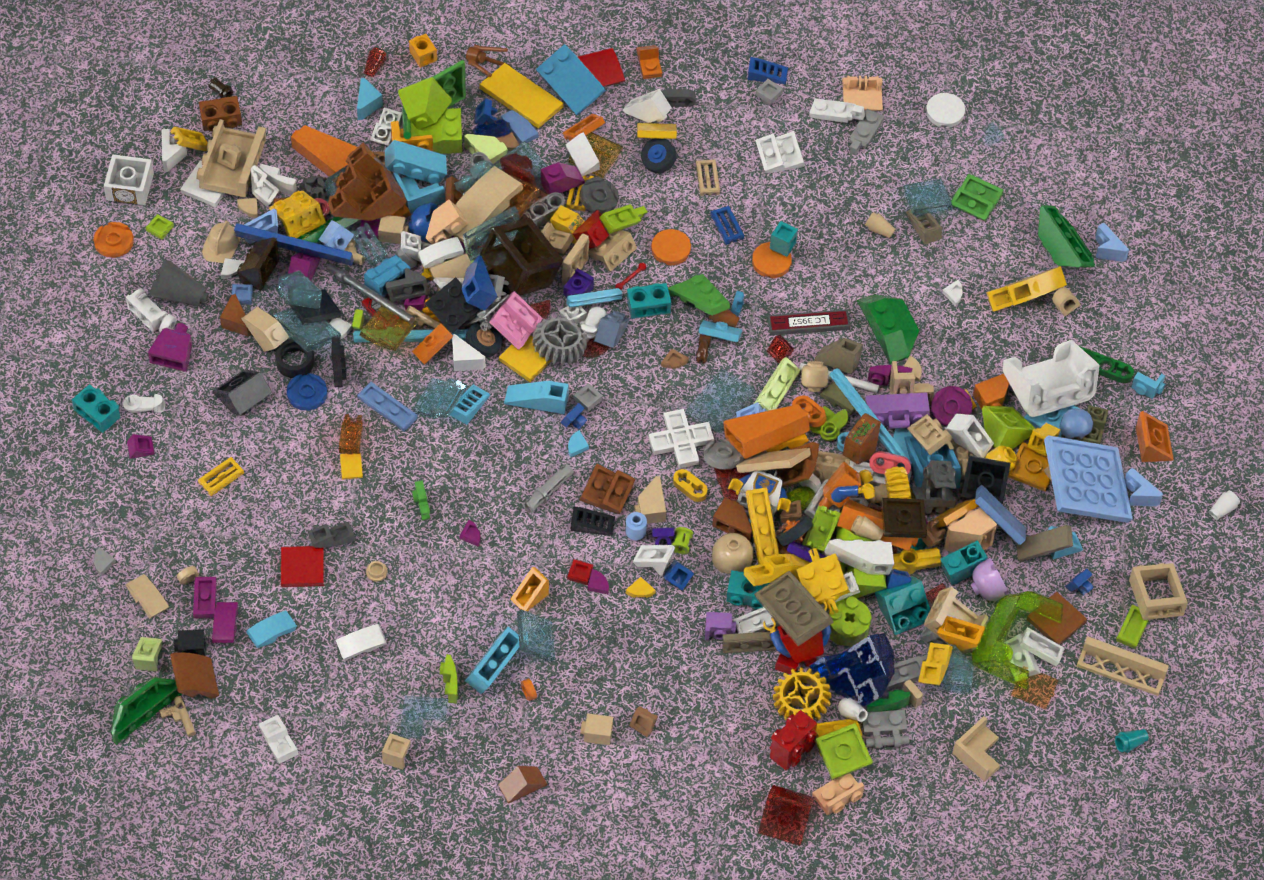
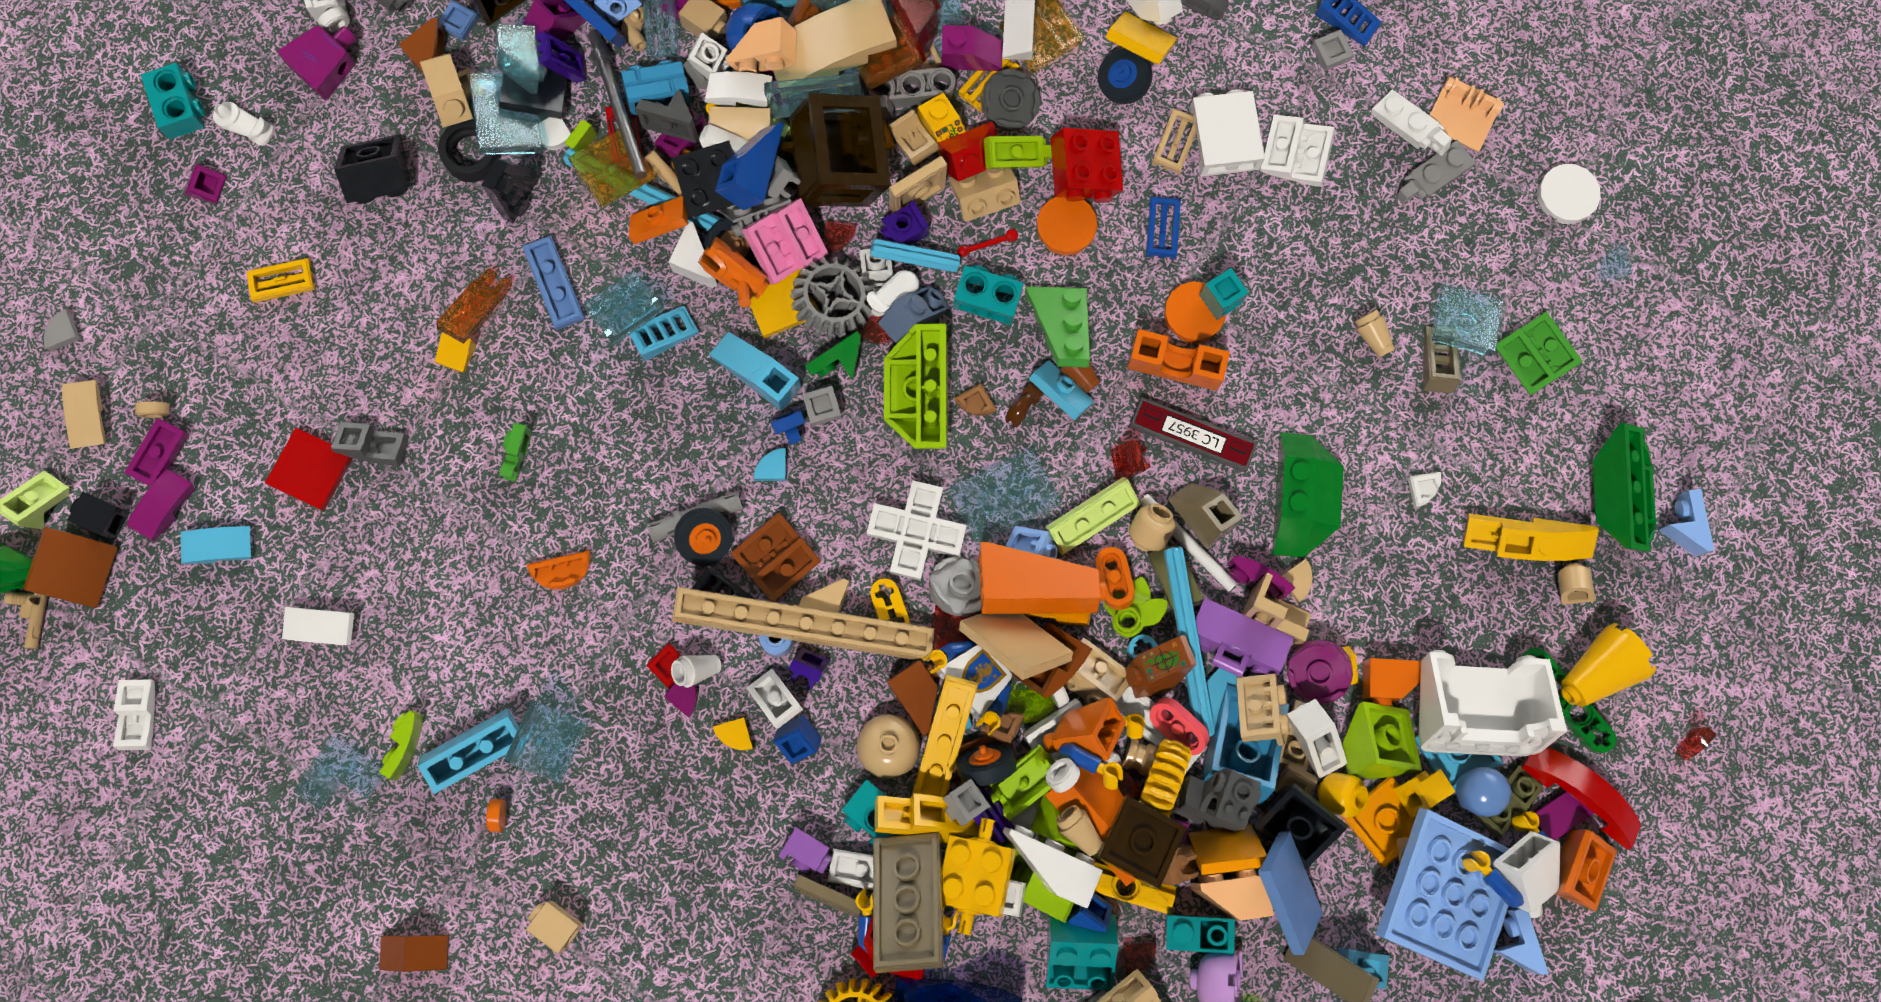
camera: 25 degrees right, 20 degrees up
(307, 391) = (469, 205): blue tile -> none
(322, 282) = (561, 62): none -> dark purple tile
(376, 571) = (400, 527): tan plate -> none
(395, 751) = (265, 820): tan panel -> none
(470, 533) = (557, 532): magenta tile -> none
(485, 553) = (562, 571): none -> orange tile
(497, 347) = (733, 271): none -> orange piece
(531, 590) = (582, 665): light orange slope -> none
(560, 494) = (703, 536): none -> black wheel
(584, 366) = (845, 351): none -> green slope
(597, 562) = (694, 668): none -> white cone
(638, 360) = (918, 387): none -> lime wedge
(643, 721) = (622, 945): medium nougat tile -> none
(648, 505) = (802, 624): none -> tan tile
(665, 207) = (1086, 164): none -> red brick
(682, 540) = (829, 690): lime bush -> none
(735, 159) = (1227, 132): none -> white panel
(737, 303) = (1103, 364): dark azure tile -> none
(792, 284) = (1198, 366): none -> orange arch
(795, 547) = (965, 803): none -> light grey tile
(841, 503) = (1062, 775): none -> white tile
(851, 622) = (1002, 953): lime brick -> none
(1106, 329) = (1607, 667): none -> yellow cone
(1119, 449) = (1526, 871): none -> white torso
(1127, 417) = (1561, 815): none -> magenta tile
(1135, 397) = (1589, 789): none -> red slope
(1146, 386) = (1621, 779): medium azure bracket -> none
(1176, 350) = (1695, 742): none -> clear red tile

